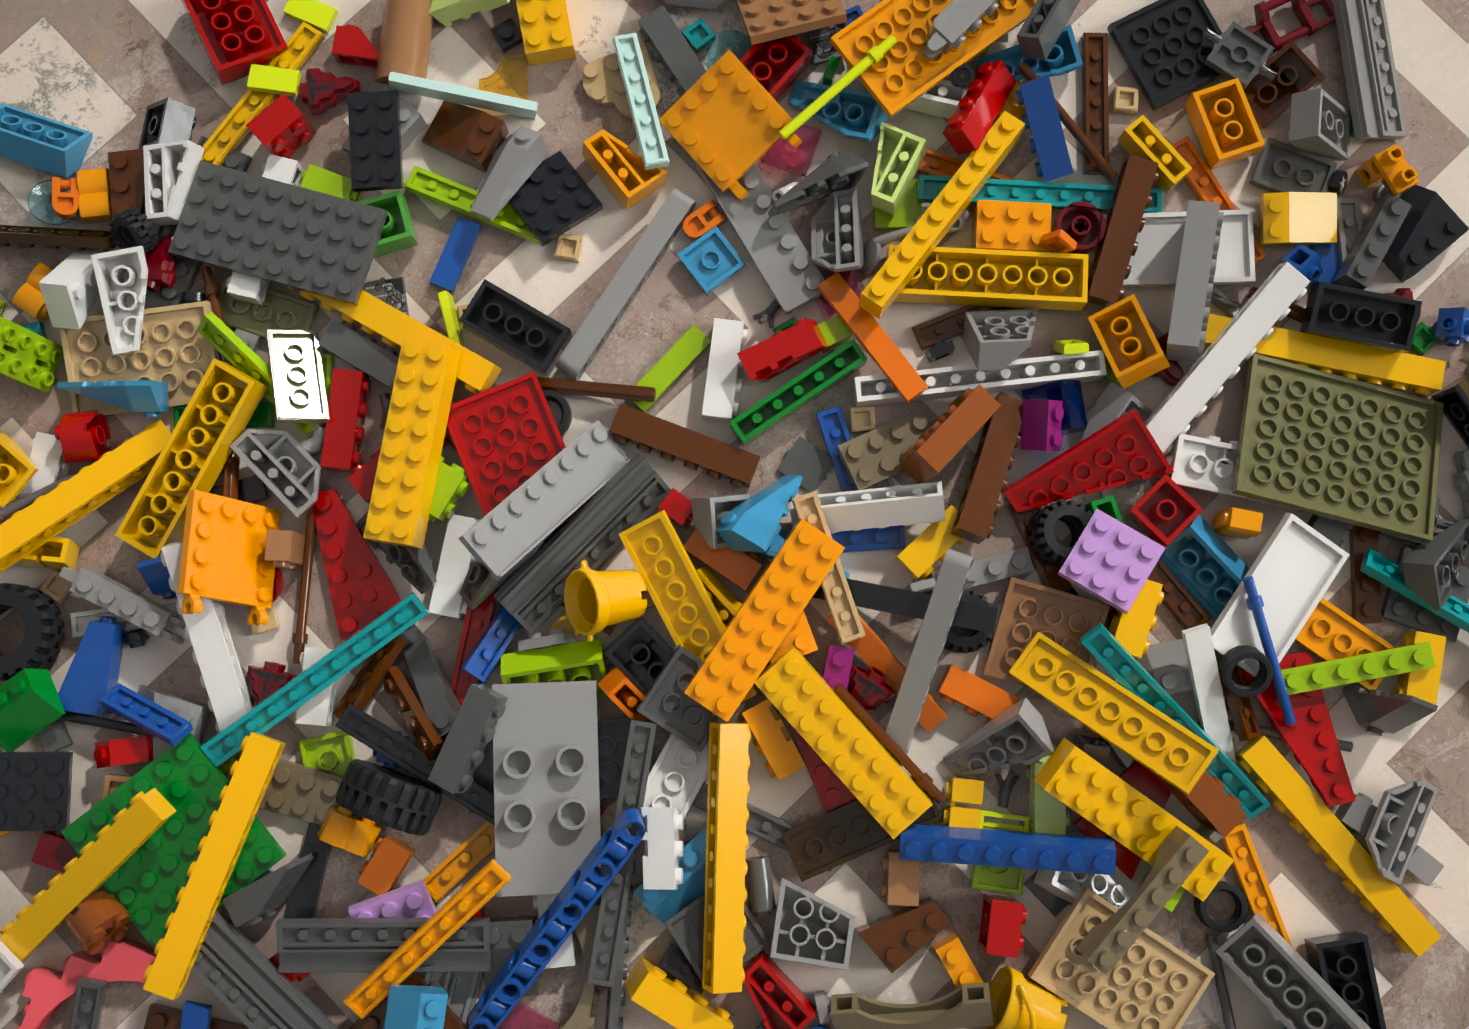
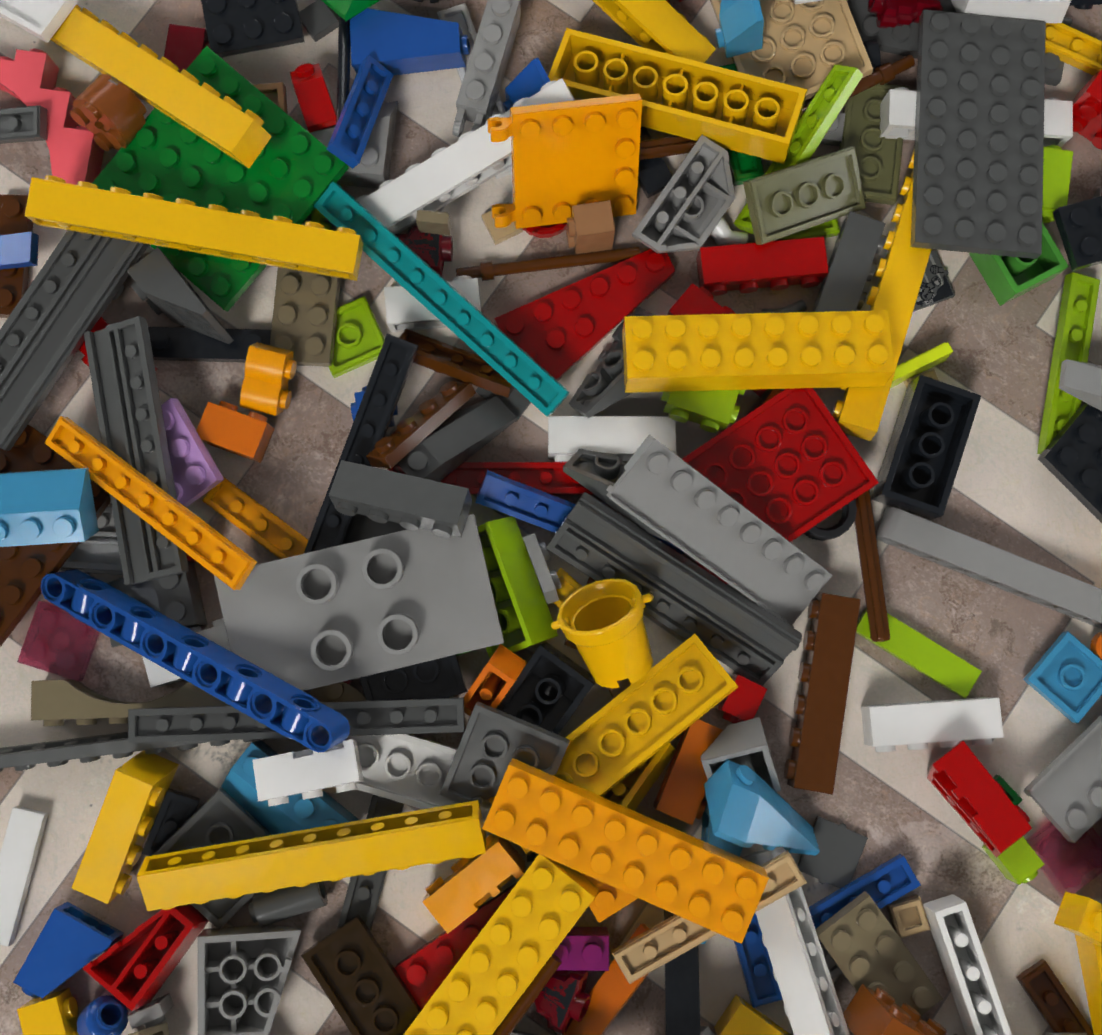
camera: 75 degrees right, 0 degrees up
(135, 638) = (450, 82): black plate -> none
(251, 673) = (433, 222): none -> dark tan tile
(388, 797) = (311, 417): black tyre -> none
(455, 254) = (999, 353): blue tile -> none
(569, 248) = (1041, 491): tan tile -> none
(768, 314) = (1018, 765): dark grey bar -> none
(798, 392) = (927, 828): green brick -> none
(872, 338) = (1024, 917): orange tile -> none
(940, 350) = (1025, 1006): black plate -> none

